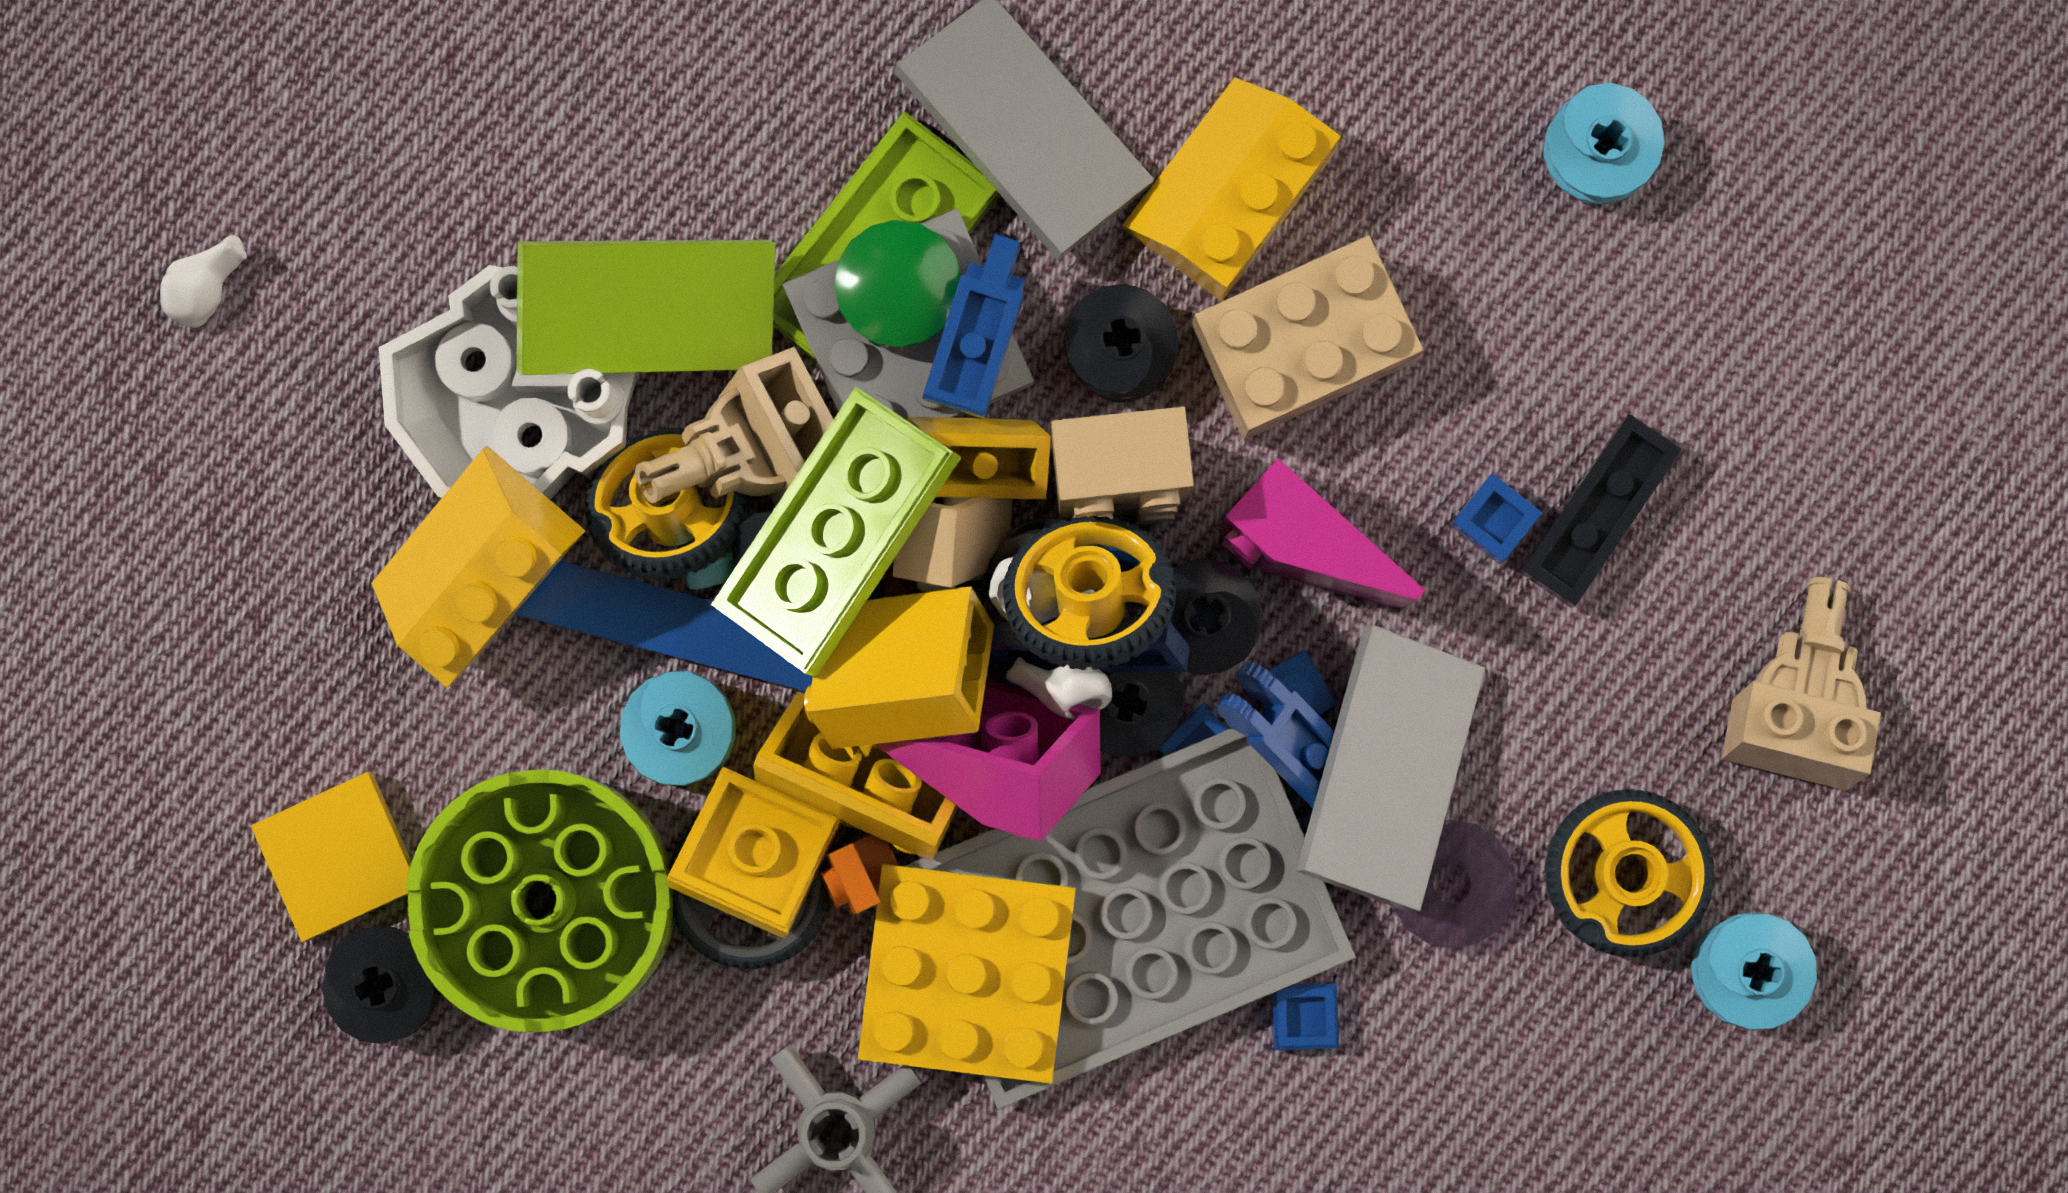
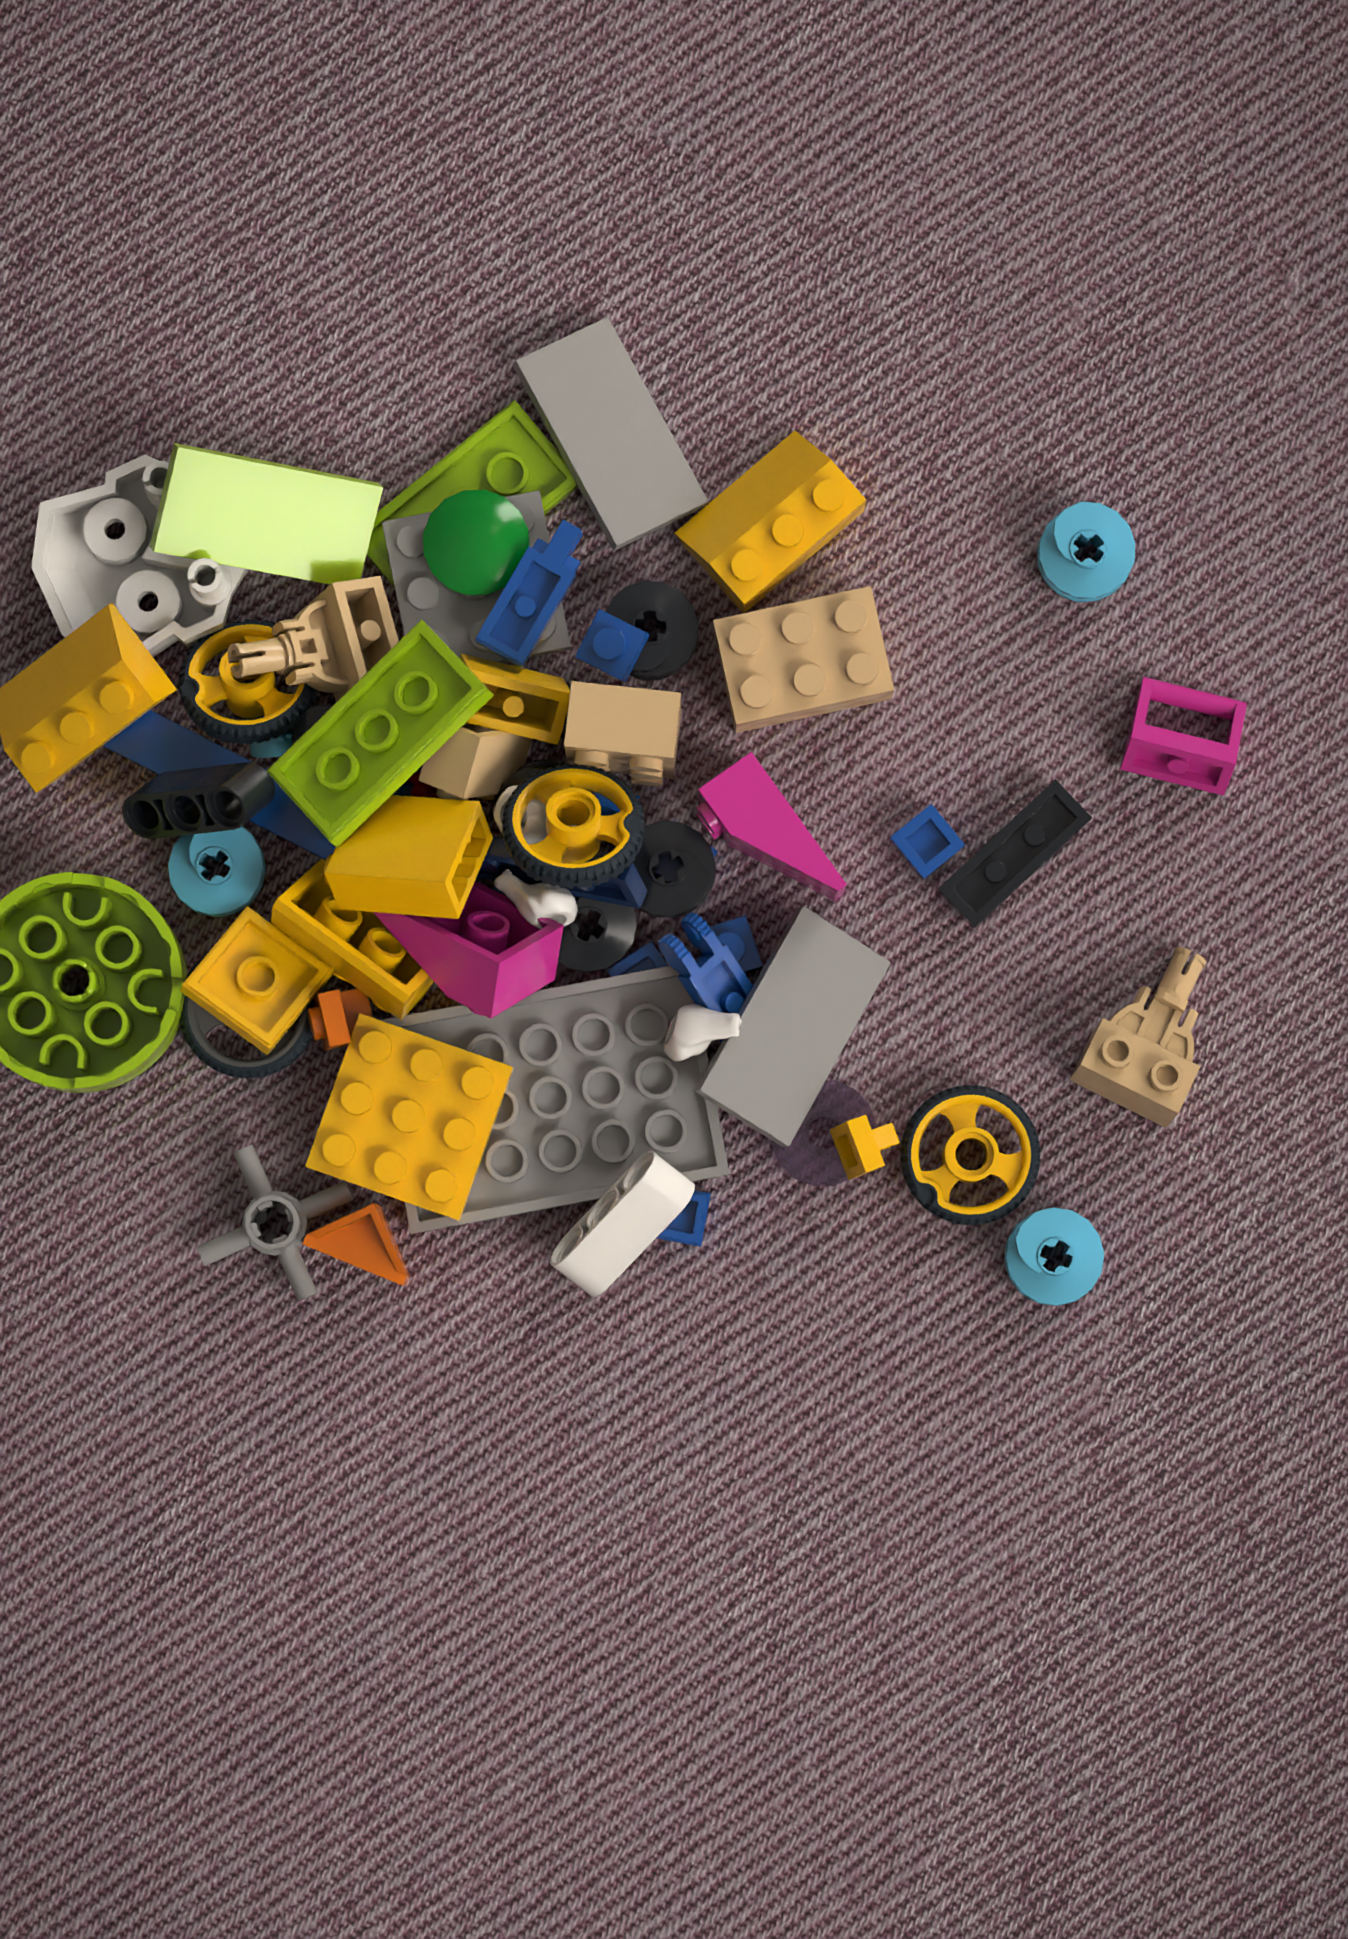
camera: 10 degrees right, 0 degrees up
(639, 655) = (198, 800): none -> black beam
(945, 1133) = (362, 1241): none -> orange slope
(1083, 369) = (612, 645): none -> blue plate
(1245, 1044) = (622, 1223): none -> white beam
(1280, 797) = (695, 1028): none -> white animal
(1505, 891) = (861, 1146): none -> yellow tile
(1761, 355) = (1180, 756): none -> dark pink tile

